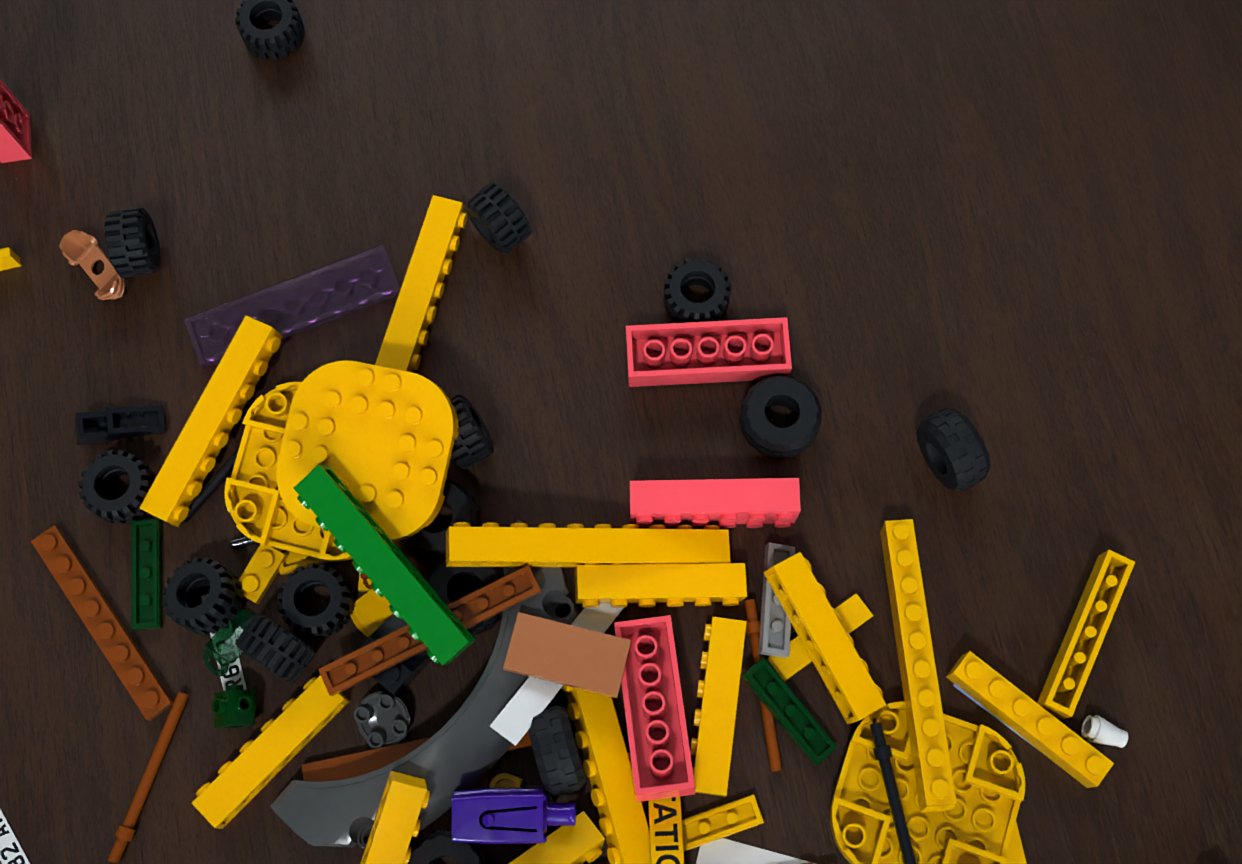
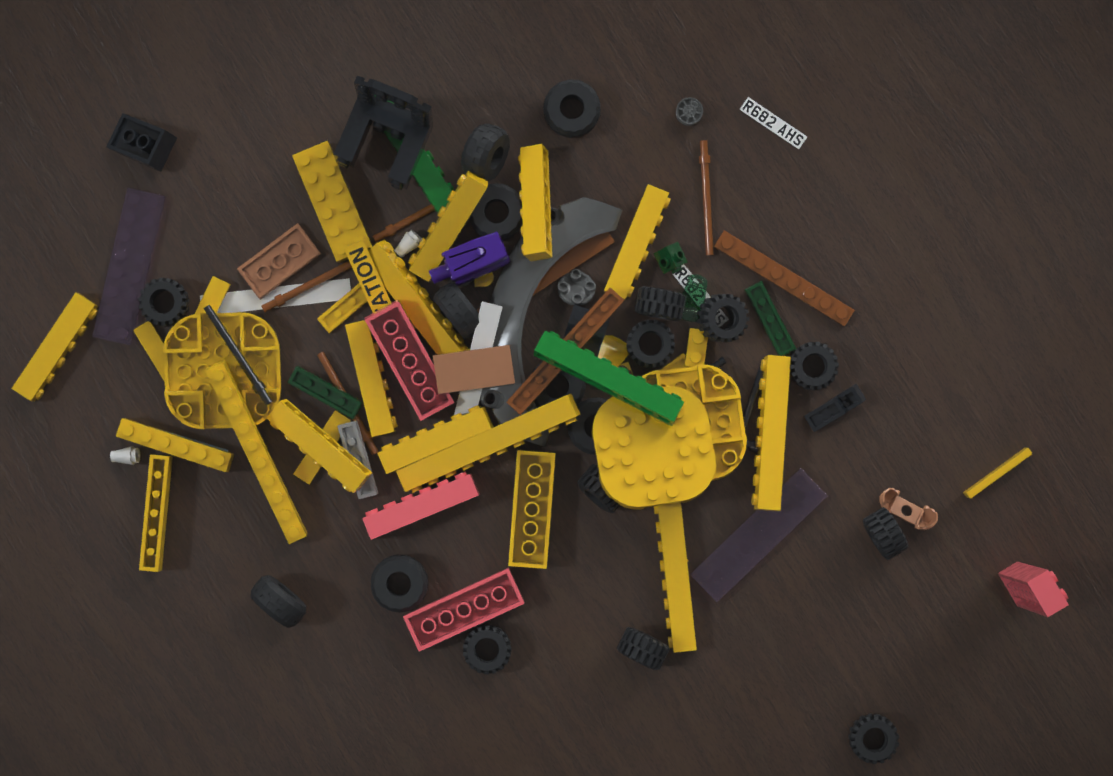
camera: 160 degrees right, 15 degrees up
(567, 444) = (531, 509): none -> yellow brick

